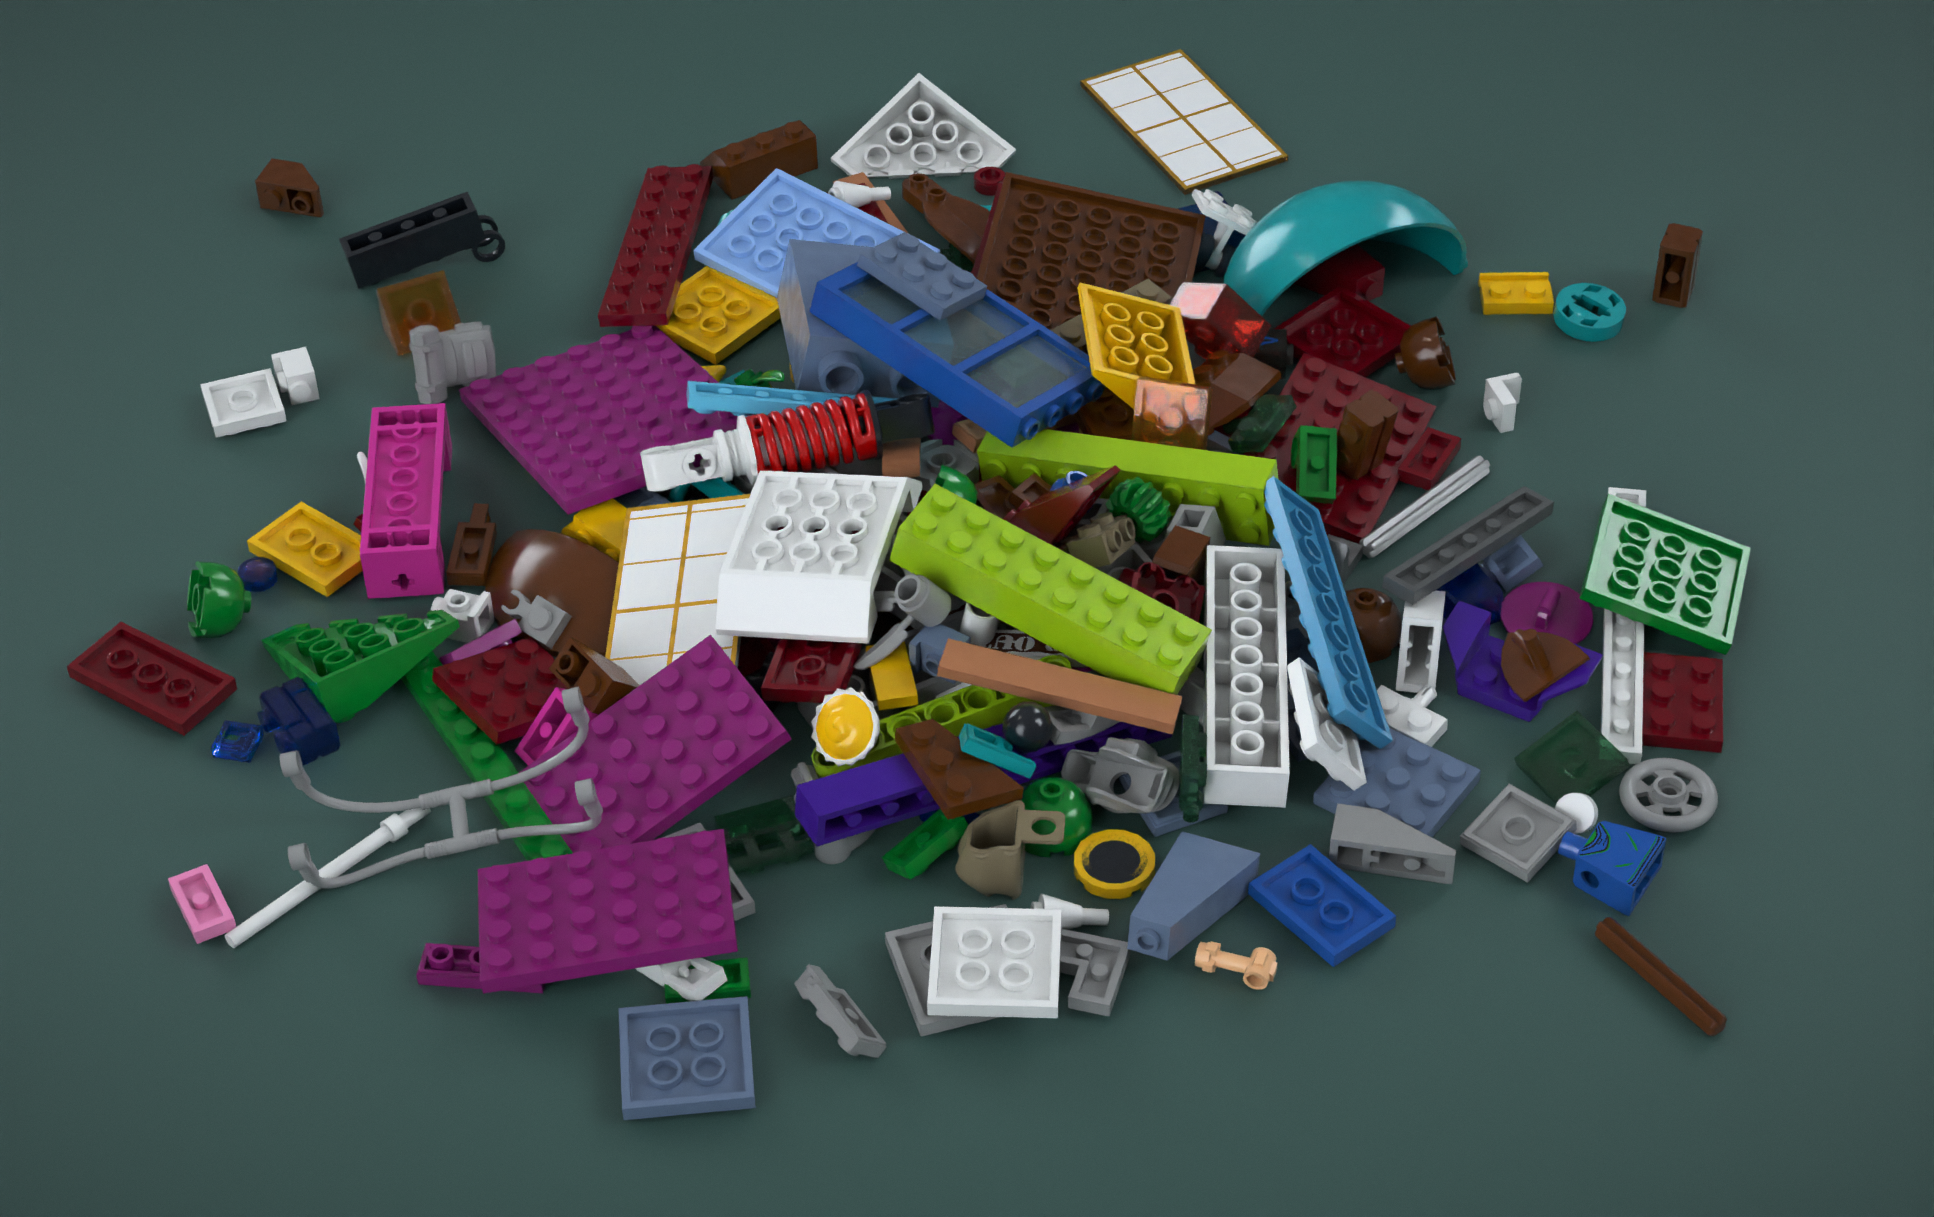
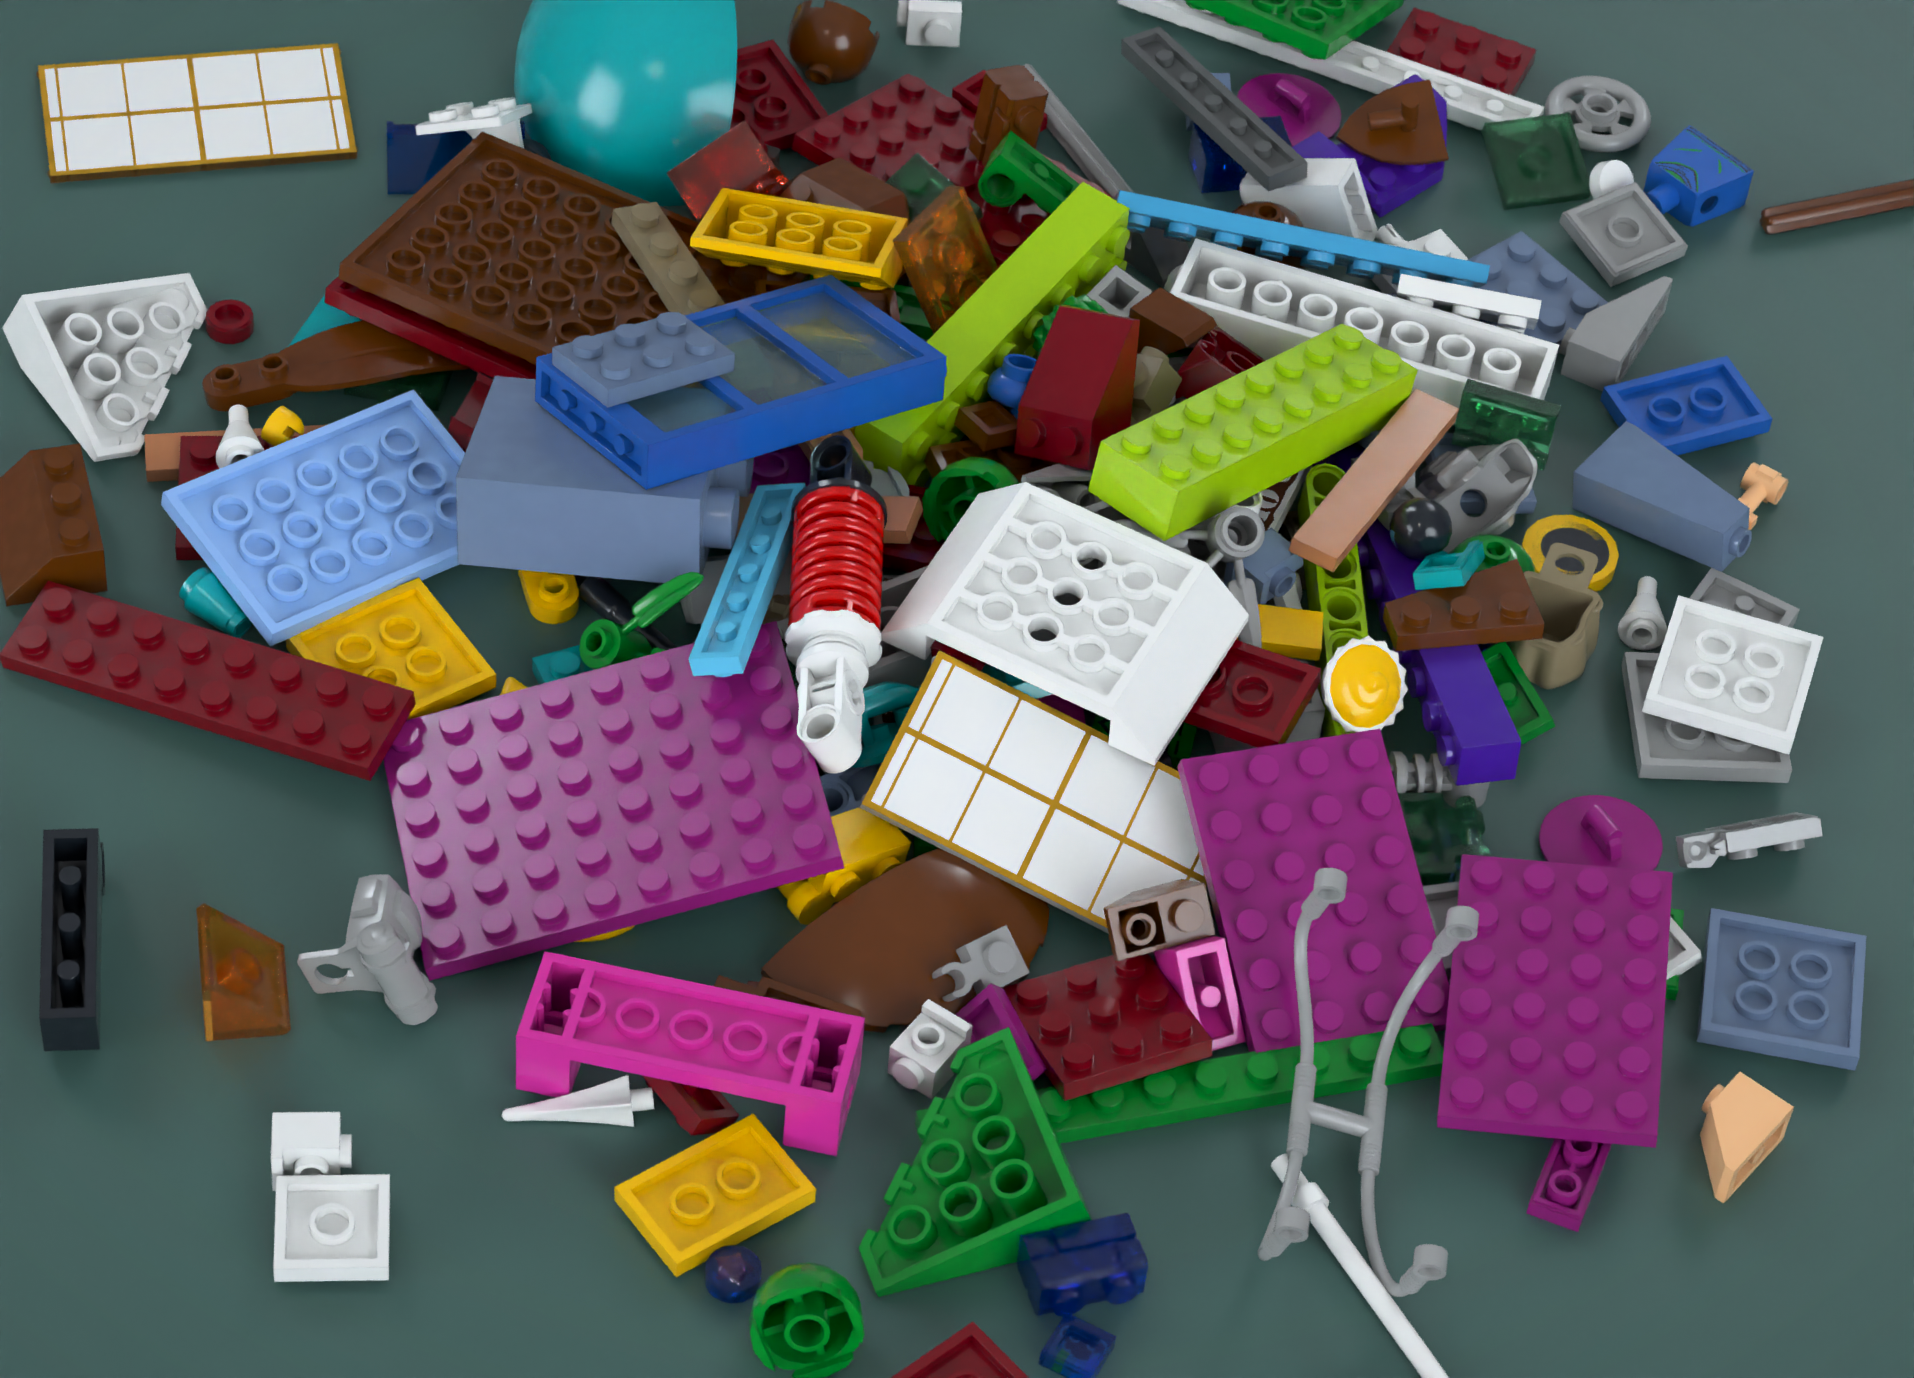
camera: 80 degrees left, 5 degrees up
(521, 1048) = (1740, 1131): none -> light nougat slope
(808, 932) = (1600, 833): none -> magenta shield
(876, 205) = (281, 426): none -> yellow hinge

